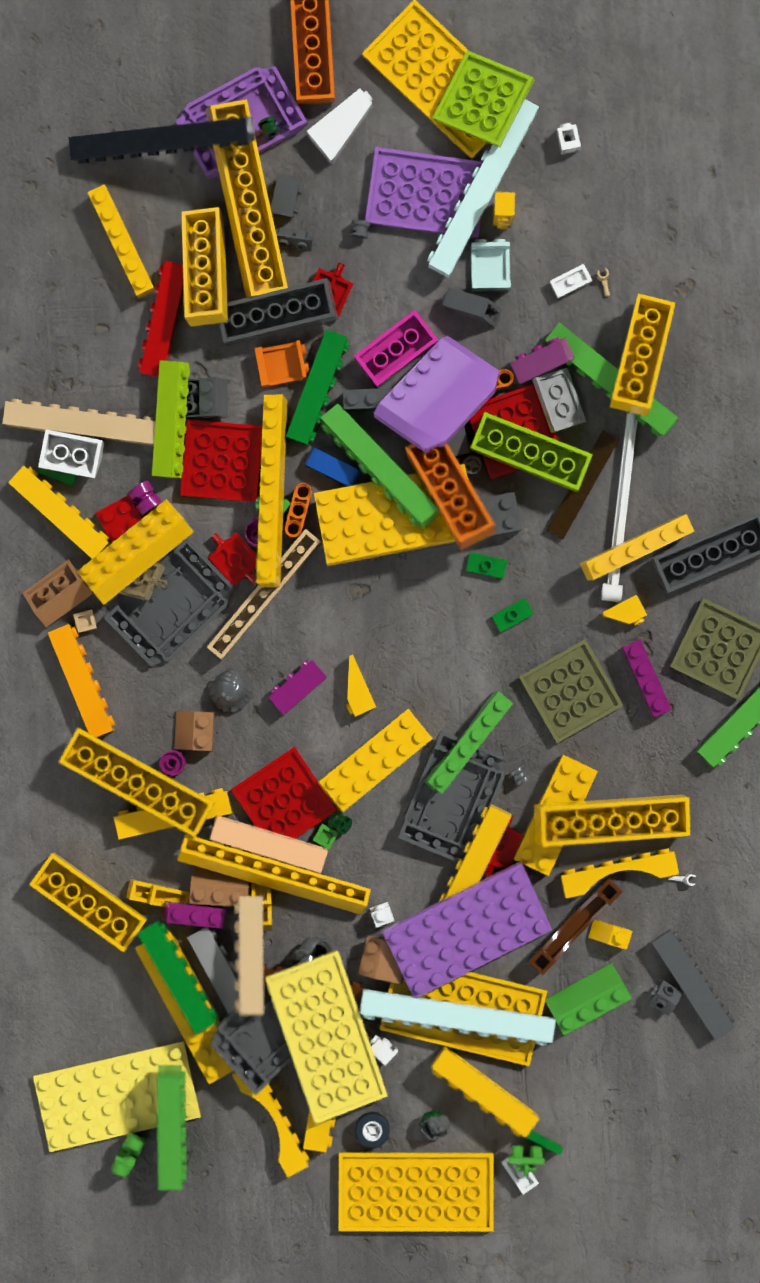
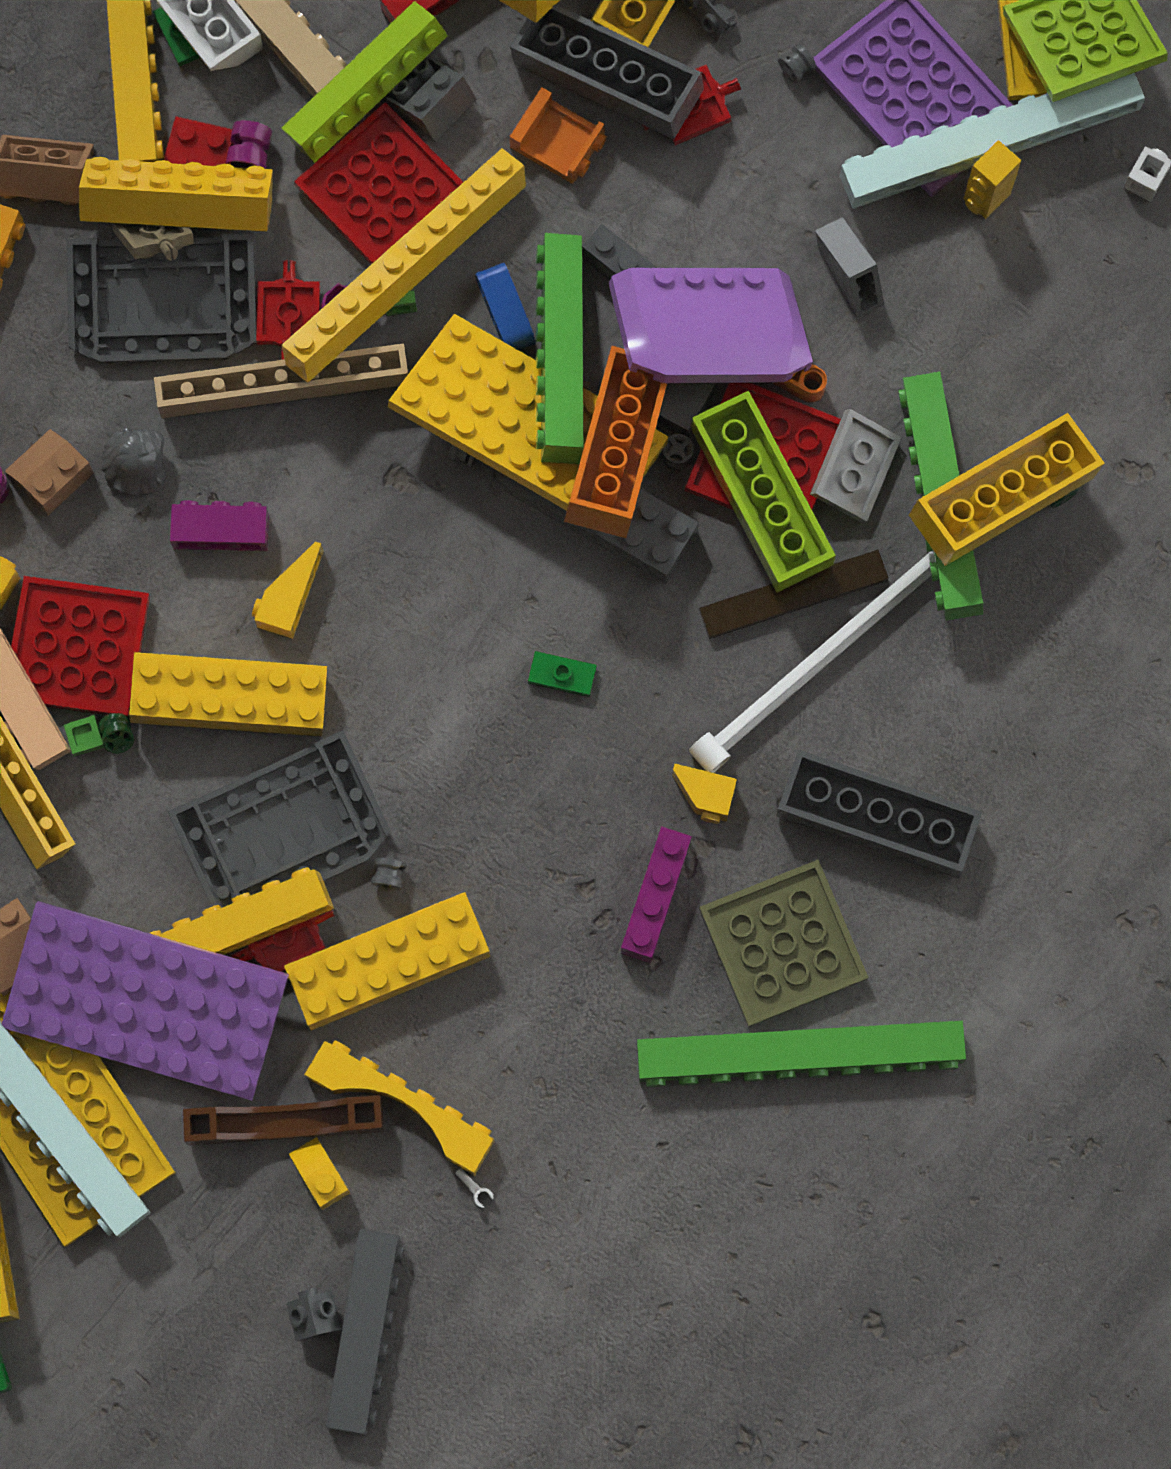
camera: 45 degrees right, 10 degrees down
(85, 621) = (43, 229): tan plate -> none
(298, 501) = (423, 308): orange beam -> none
(317, 387) = (575, 200): green brick -> none
(382, 914) = (61, 890): white brick -> none
(395, 349) = (710, 233): dark pink brick -> none
(470, 741) = (362, 772): bright green arch -> none
(486, 565) = (585, 587): green plate -> none
(490, 265) = (917, 239): light aqua panel -> none
(542, 359) = (878, 396): magenta brick -> none
(570, 281) = (999, 340): white plate -> none
(570, 691) = (548, 828): olive plate -> none
(588, 999) = (215, 1229): bright green slope -> none
(604, 281) = (1043, 374): tan hand -> none
(612, 820) = (450, 1024): yellow brick -> none
(637, 547) = (790, 721): yellow brick -> none

